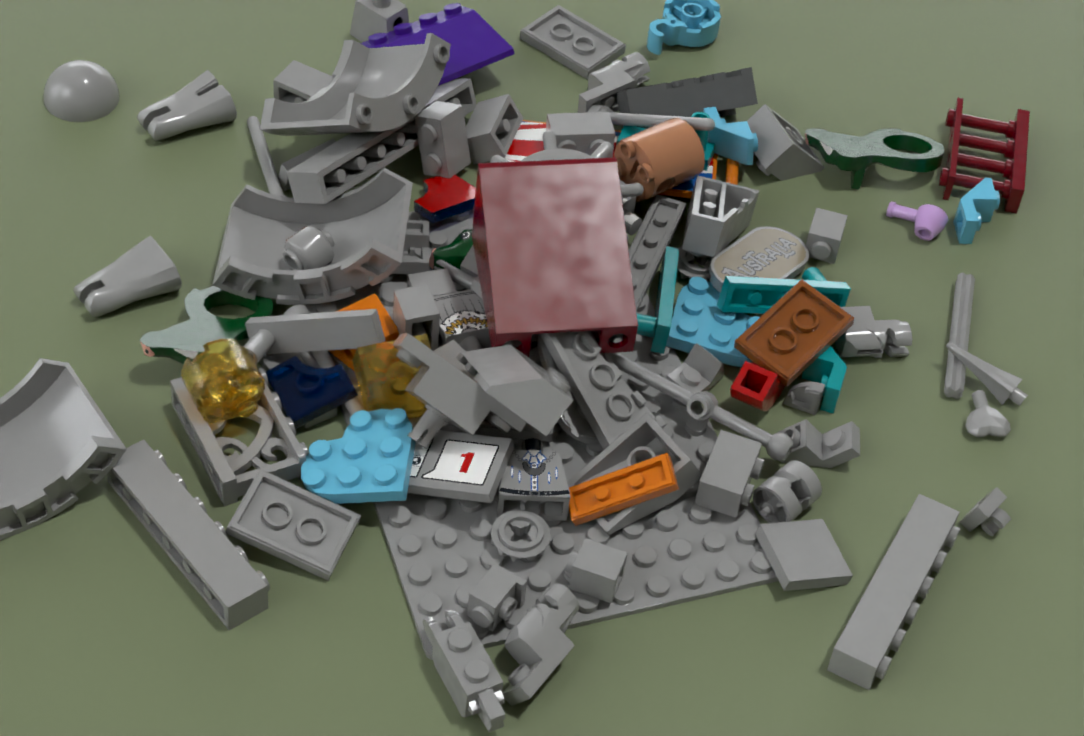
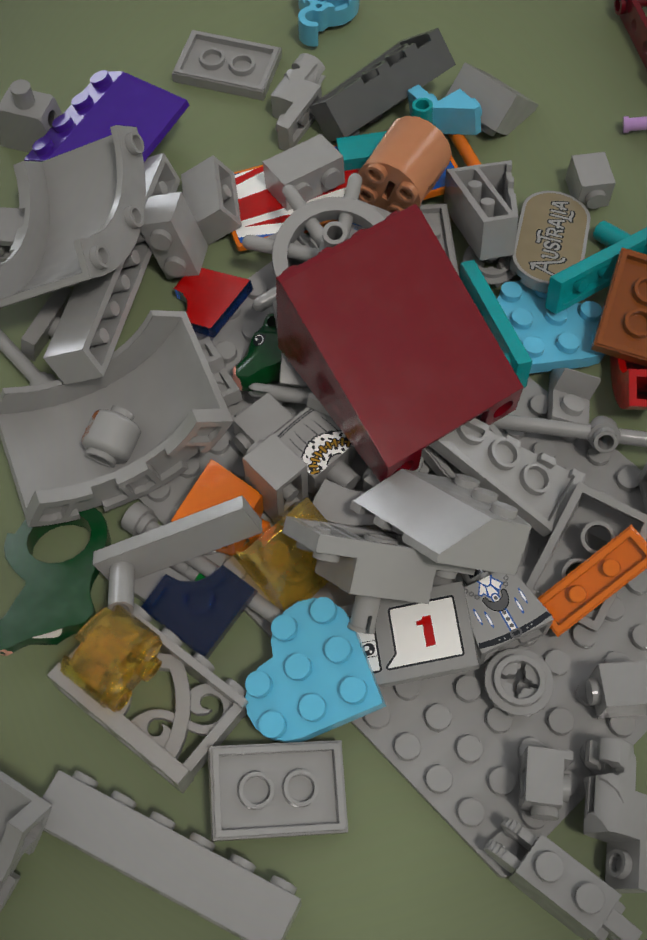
camera: 20 degrees left, 15 degrees up
(648, 120) = (367, 126): light grey piece -> none
(858, 153) = (572, 73): dark green animal -> none

